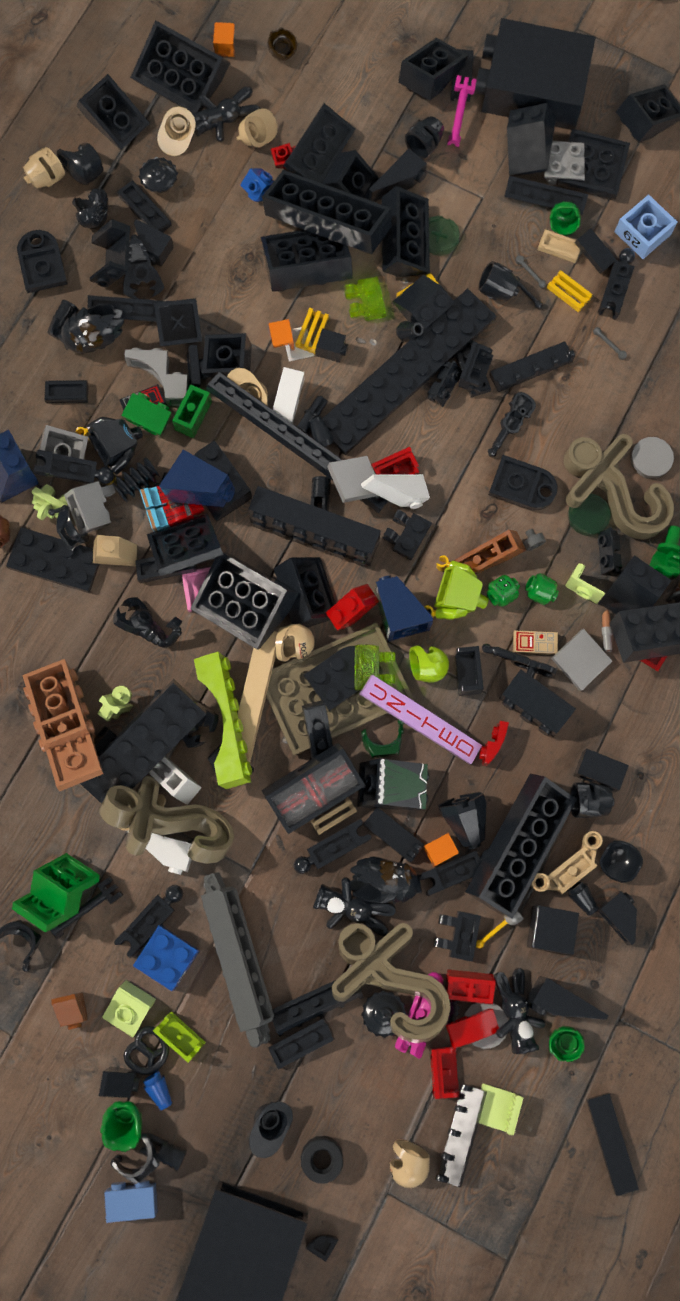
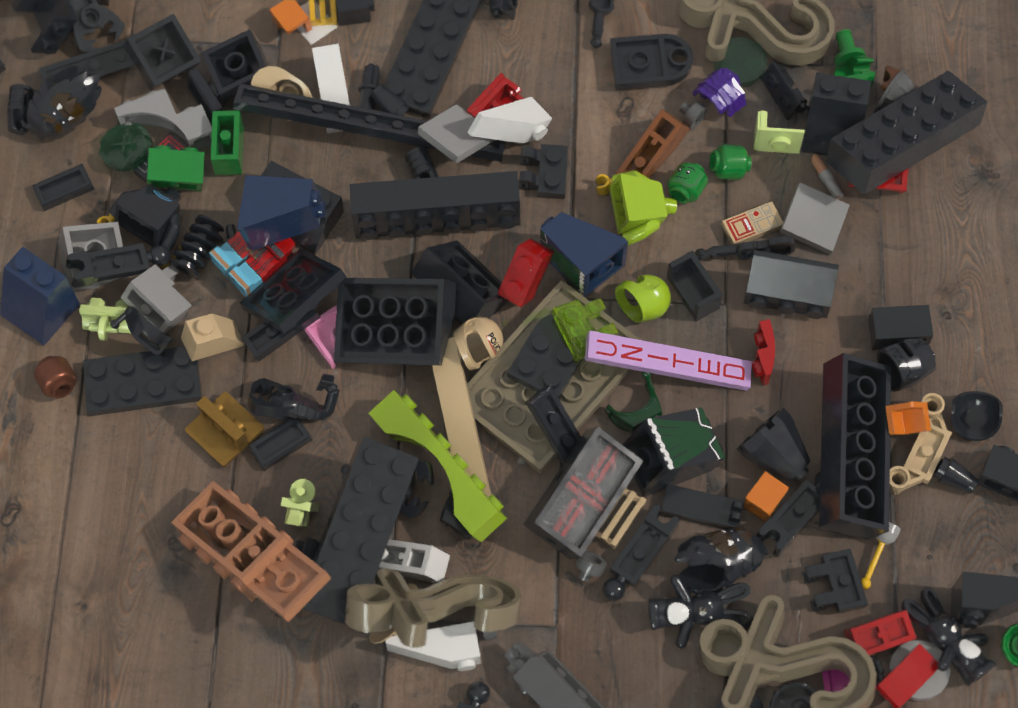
camera: 20 degrees left, 10 degrees down
(92, 621) = (223, 428): none -> pearl gold bracket
(122, 381) = (125, 147): none -> clear green tile
(126, 649) = (280, 443): none -> black tile
(295, 840) = (590, 565): none -> dark grey tile
(553, 930) = (940, 524): black piece -> none
(562, 533) = (723, 90): none -> dark purple hair
(569, 842) = (908, 418): none -> orange panel

